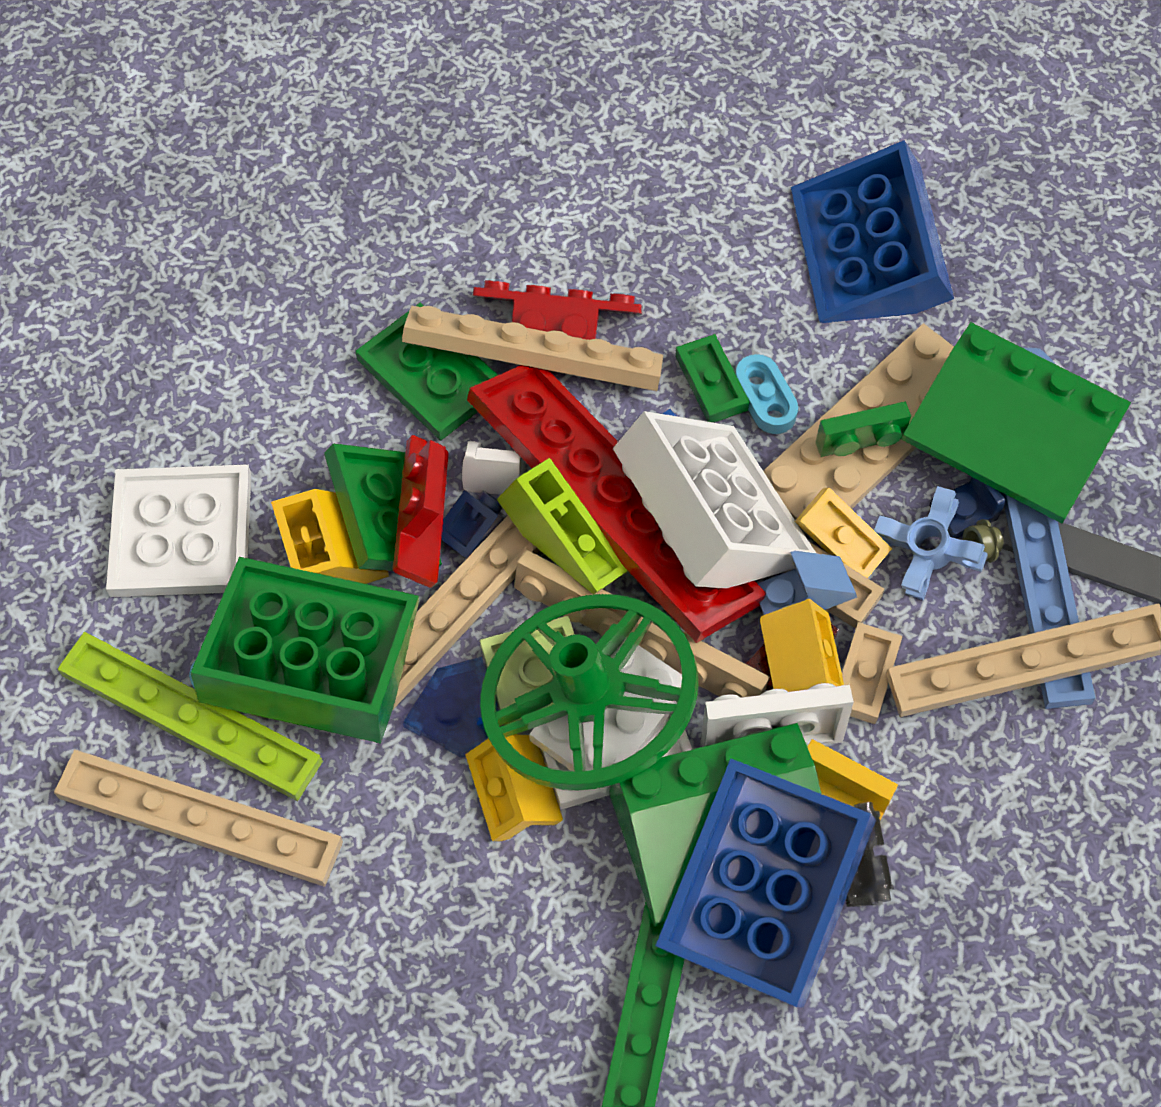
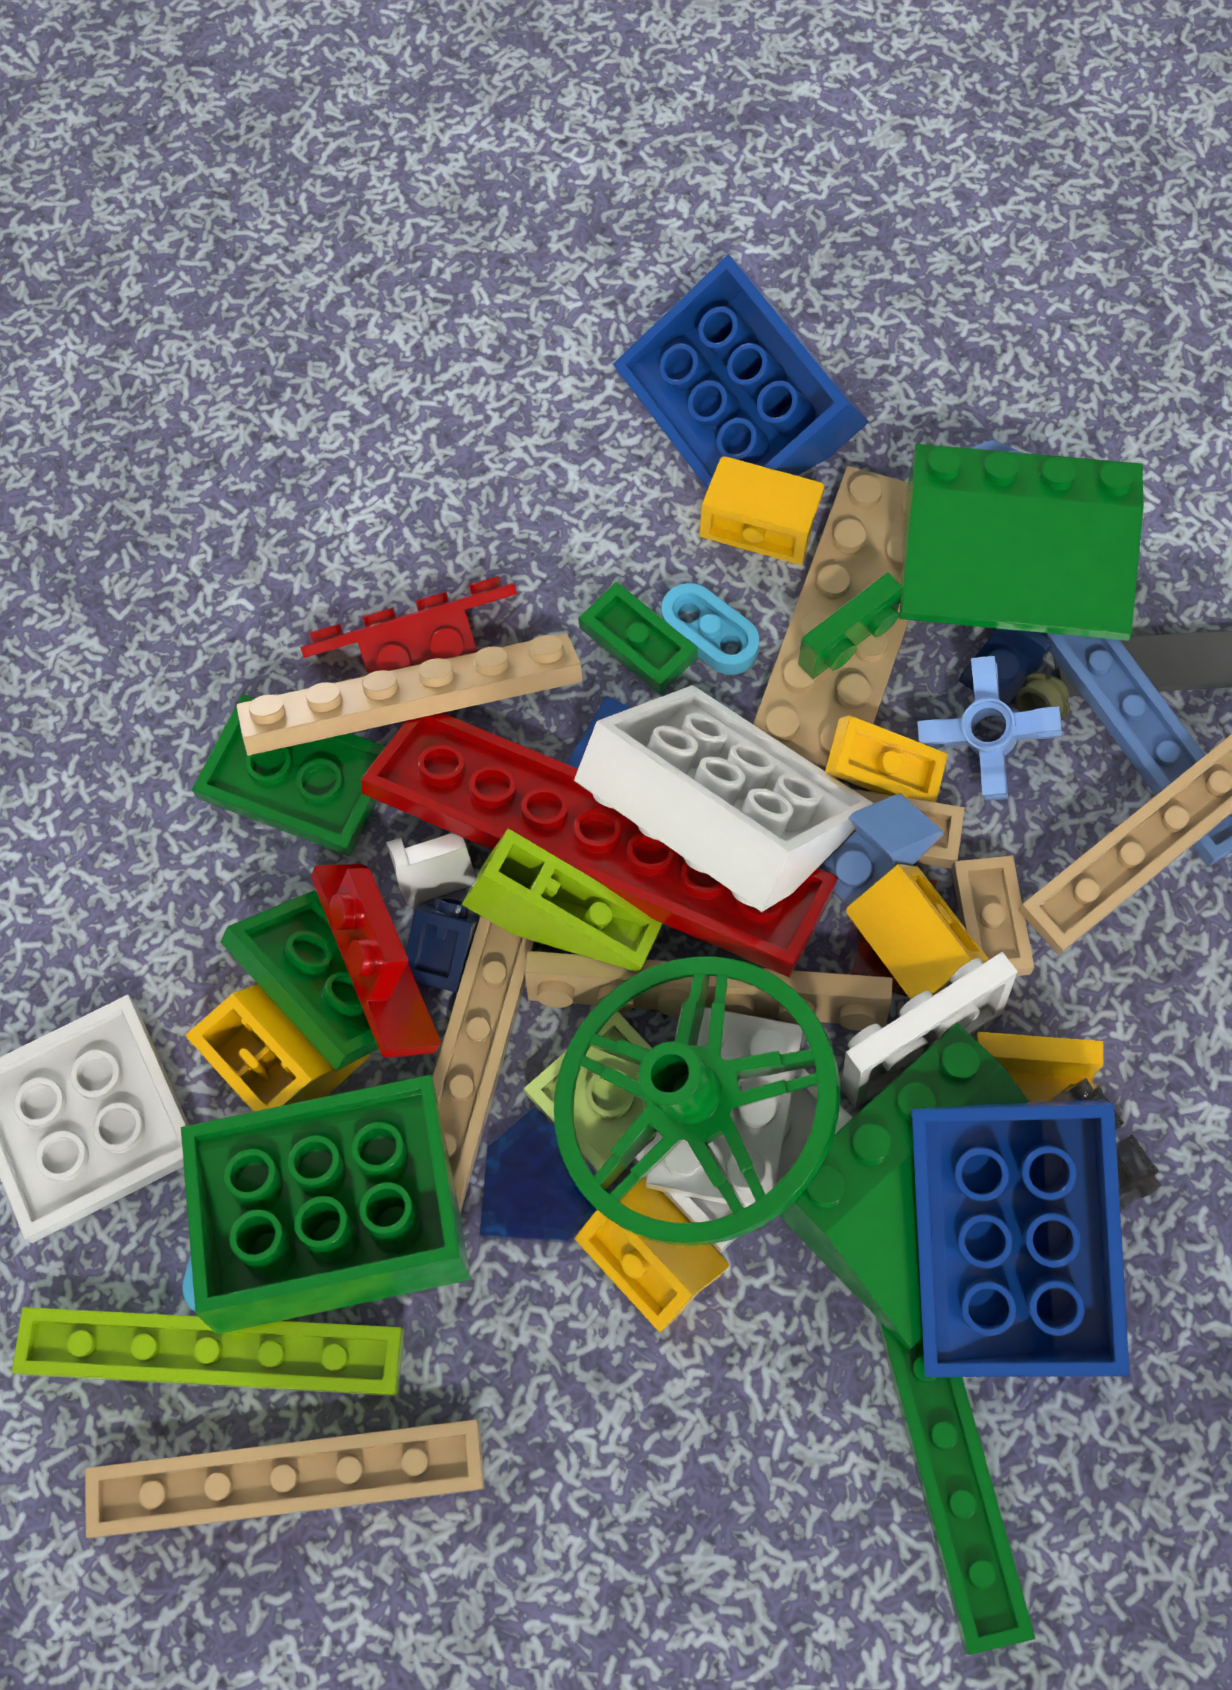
camera: 20 degrees left, 5 degrees up
(842, 327) = (760, 510): none -> yellow panel

